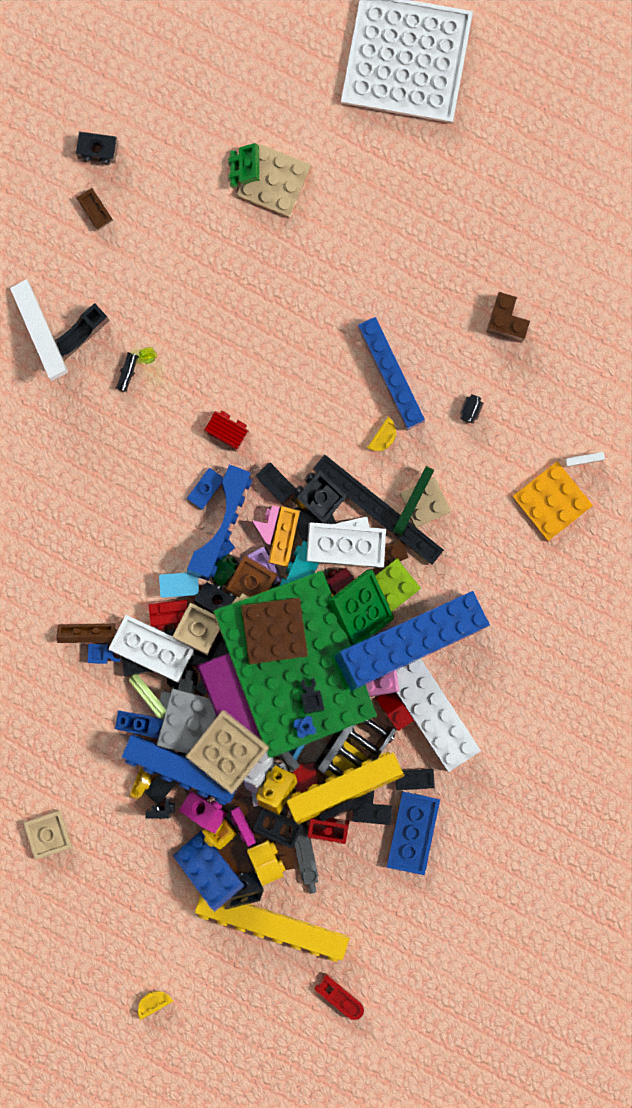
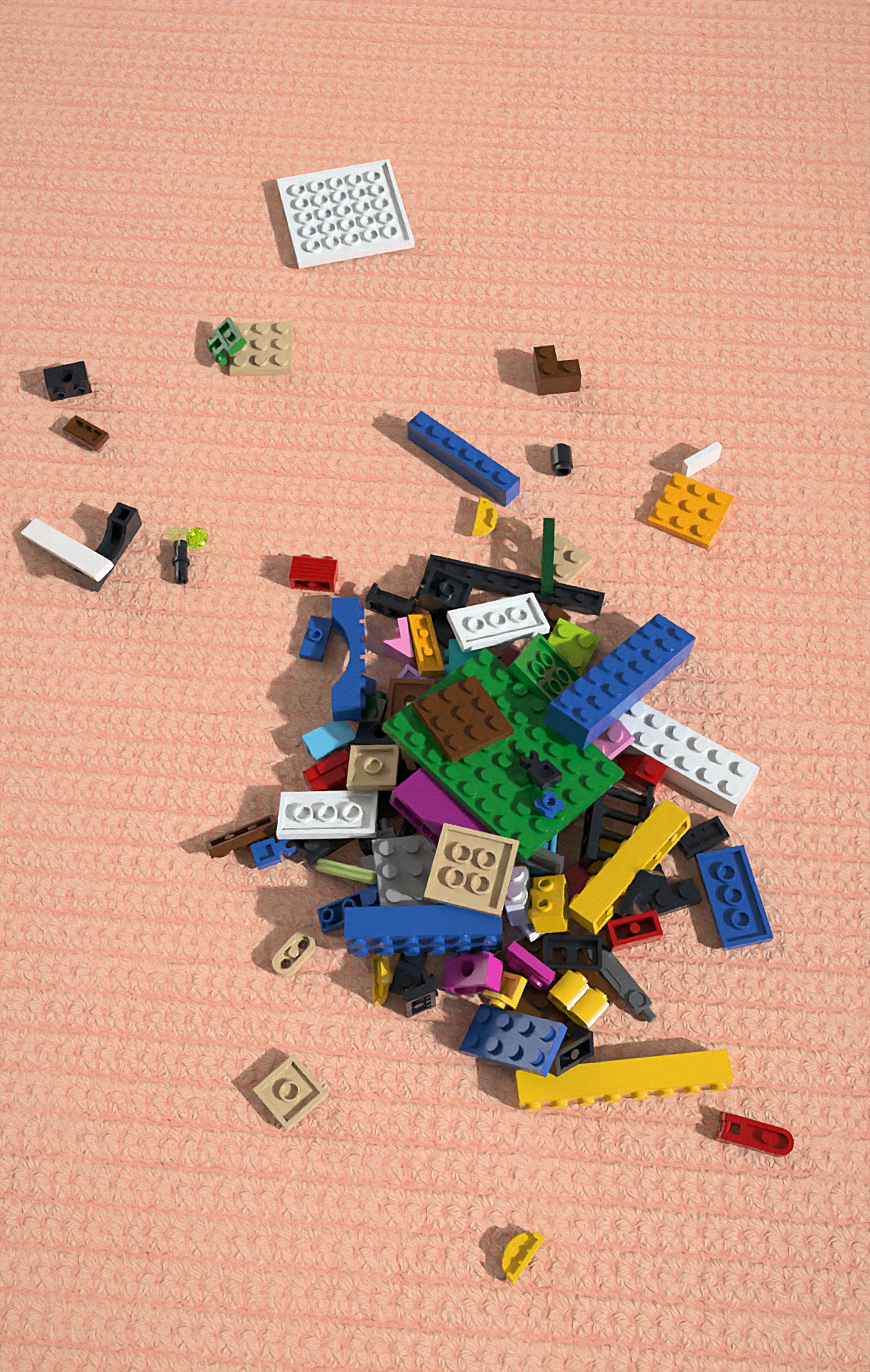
camera: 25 degrees left, 25 degrees down
(88, 737) = (292, 953): none -> tan plate

